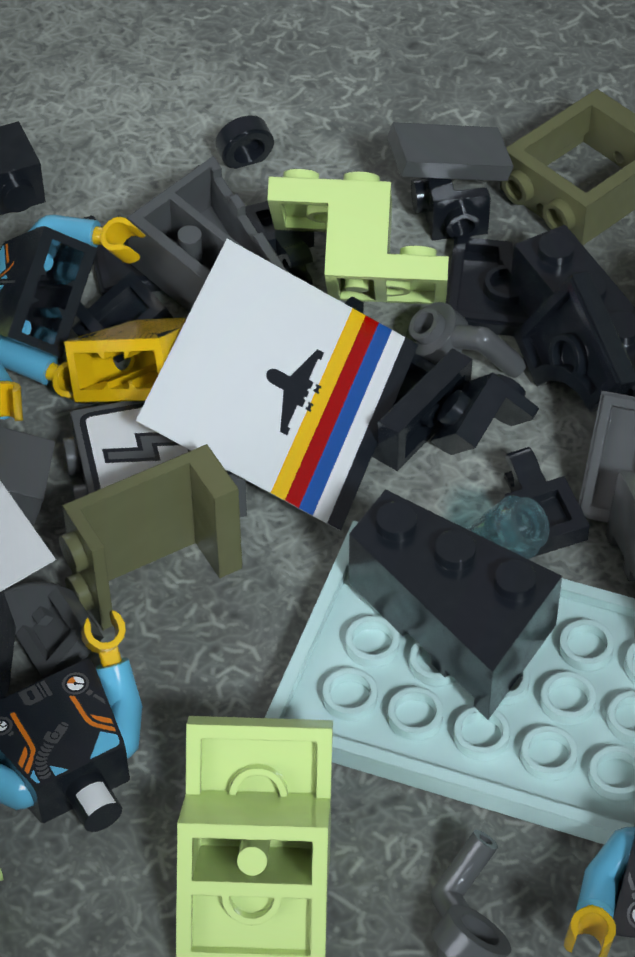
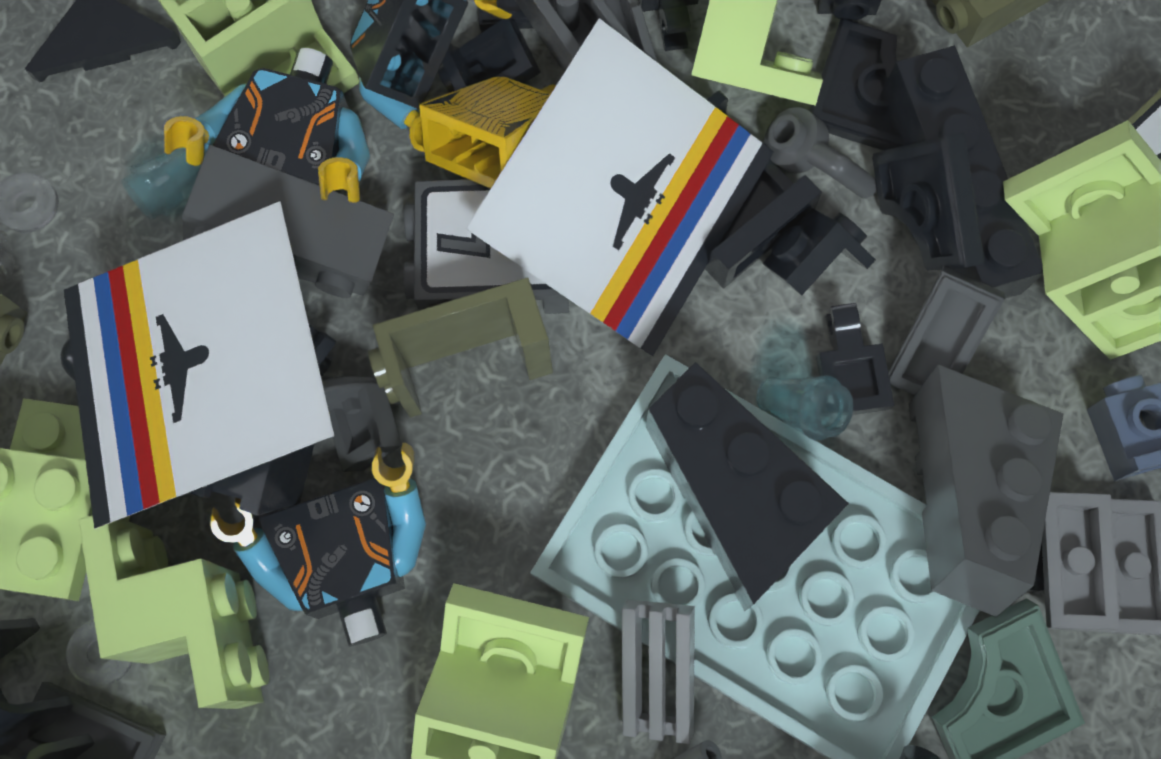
camera: 15 degrees right, 25 degrees up
(401, 723) = (656, 722): none -> light grey tile

